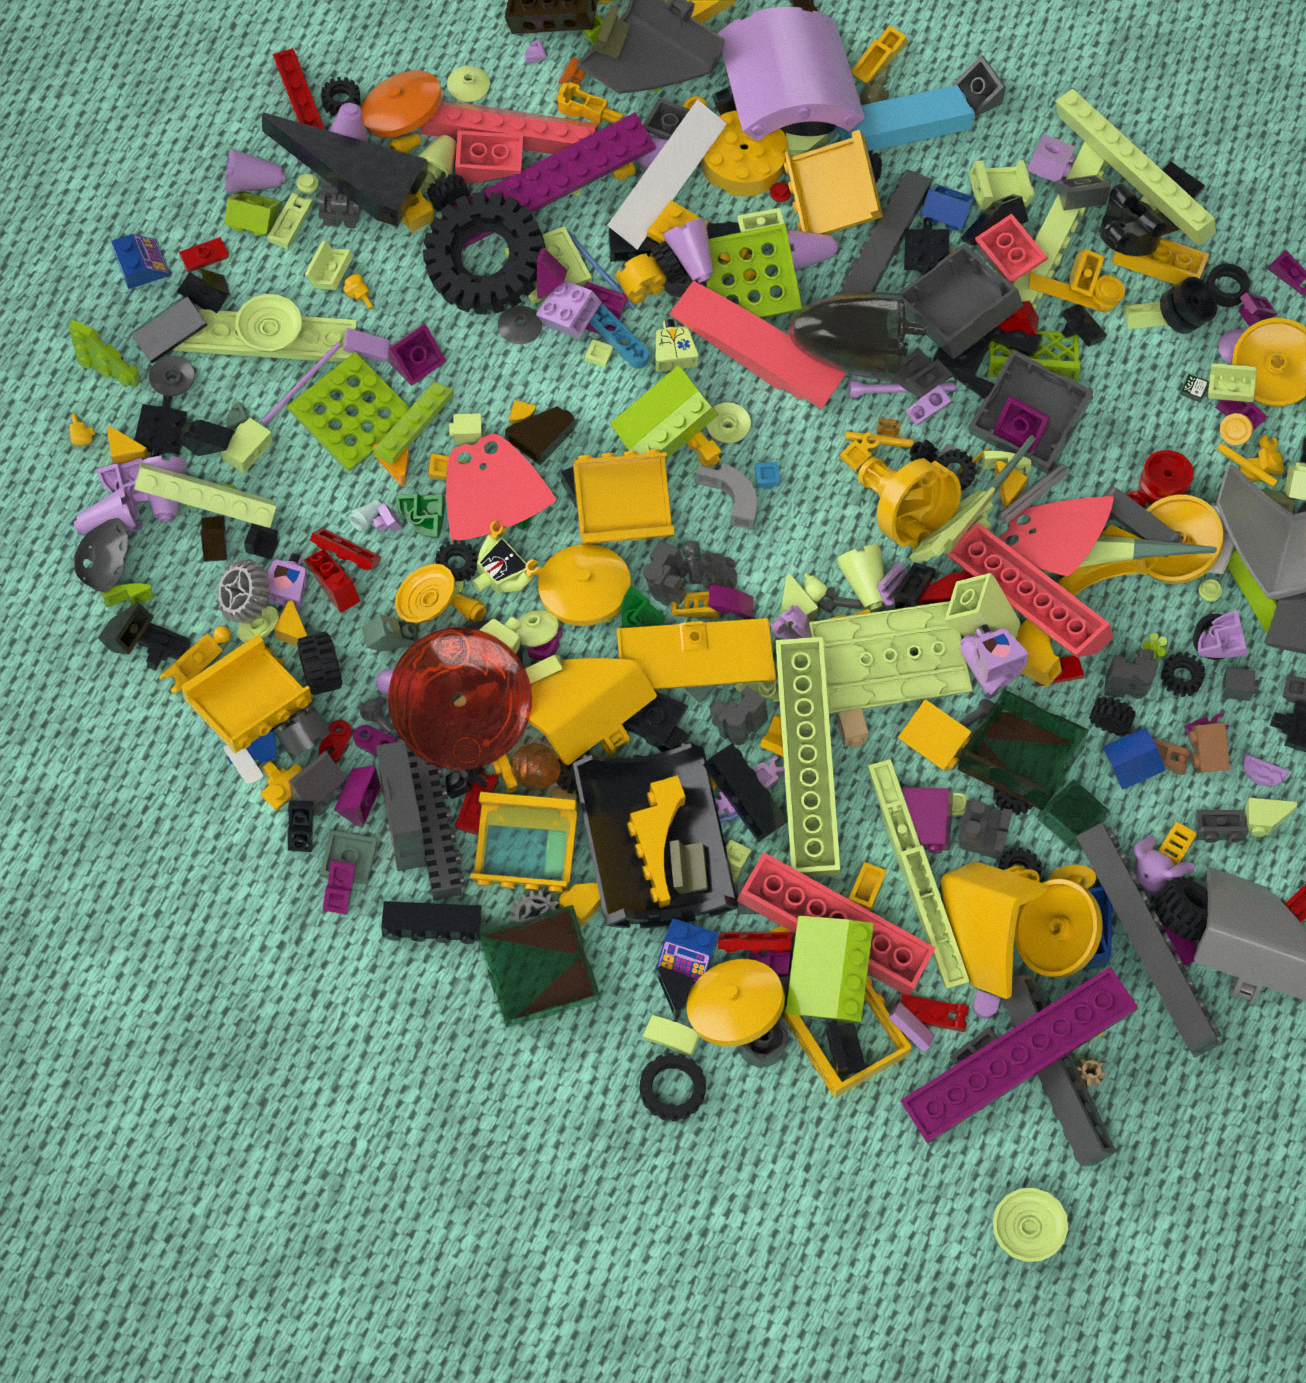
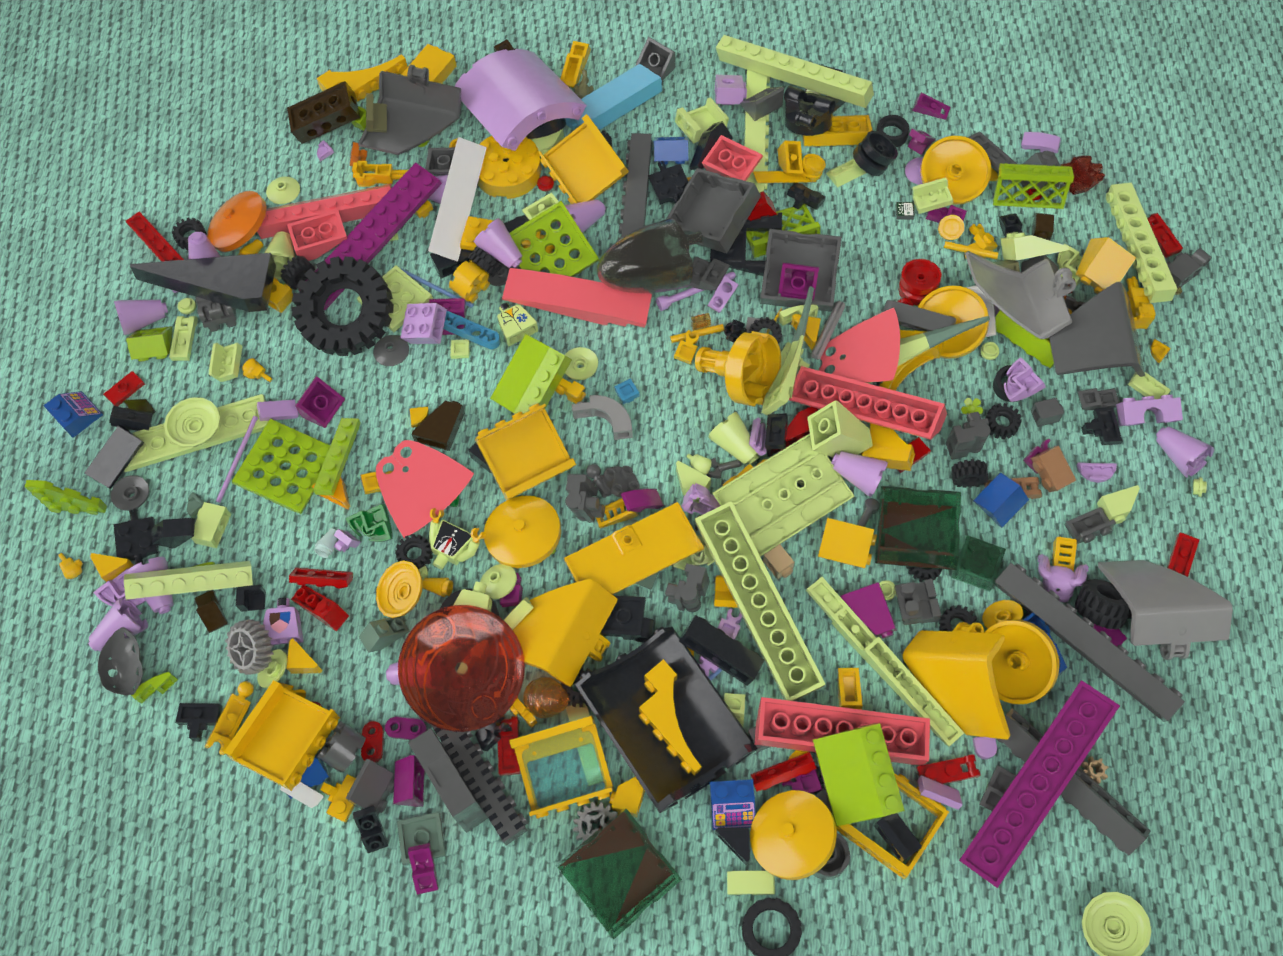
camera: 15 degrees left, 0 degrees up
(126, 629) = (162, 717): pearl dark grey slope -> none
(319, 663) = (334, 682): black tyre -> none
(372, 711) = (394, 704): dark grey piece -> none
(431, 921) = (512, 867): black brick -> none
(466, 428) = (380, 445): yellowish green brick -> none
(549, 273) = (398, 302): magenta slope -> none
(637, 611) = (573, 536): green brick -> none
(688, 867) = (703, 731): olive panel -> none
(724, 100) = (478, 133): black slope -> none
(998, 653) = (867, 459): lavender torso -> none

